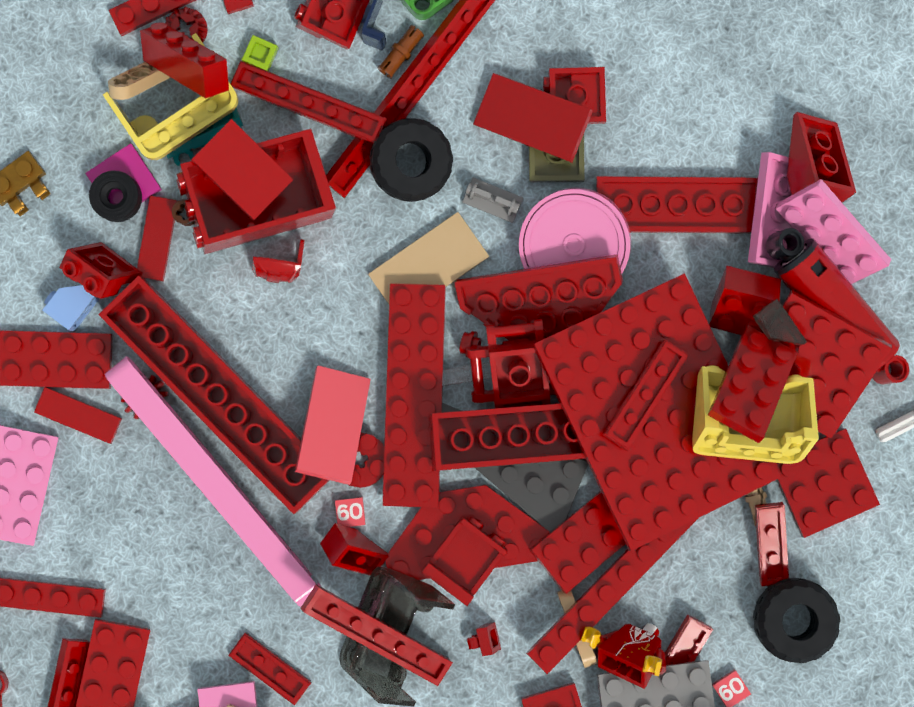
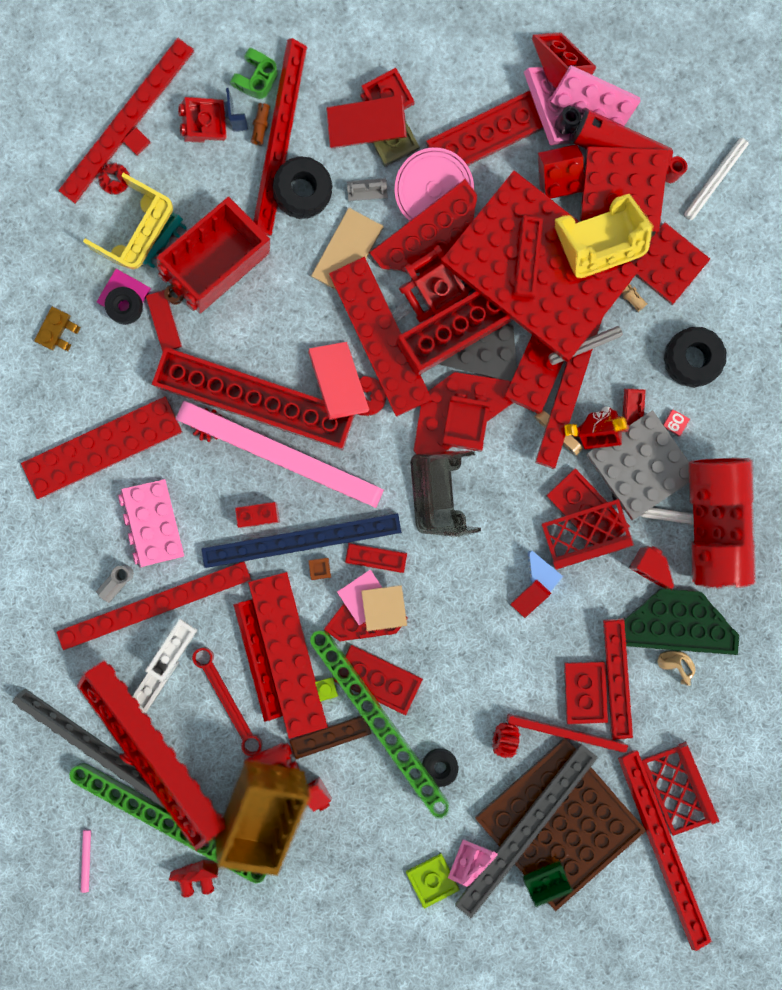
camera: 30 degrees left, 0 degrees up
(69, 306) = (131, 388): light blue slope -> none
(78, 415) = (170, 459): red tile -> none
(98, 269) = (136, 356): red plate -> none
(135, 81) = (101, 222): tan beam -> none
(148, 541) = (257, 515): none -> red brick
(184, 60) = (124, 193): red brick -> none
(188, 600) = (301, 540): none -> dark blue plate
(192, 647) = (319, 568): none -> dark orange plate
(242, 169) = (198, 241): red tile -> none
(260, 53) = (170, 170): lime plate -> none
(278, 270) = (251, 300): red piece -> none
(308, 102) = (218, 184): red tile -> none
(350, 512) = (377, 433): coral tile -> none
(352, 550) = (391, 454): red slope -> none
(376, 635) = (433, 497): red plate -> none
(469, 339) = (396, 284): red plate -> none
(486, 639) = (505, 468): red tile -> none
(675, 538) = (591, 343): none -> light grey axle
(753, 384) = (593, 214): red plate -> none
(771, 543) = (654, 316): tile -> none
(778, 324) = (590, 170): clear smoke tile -> none

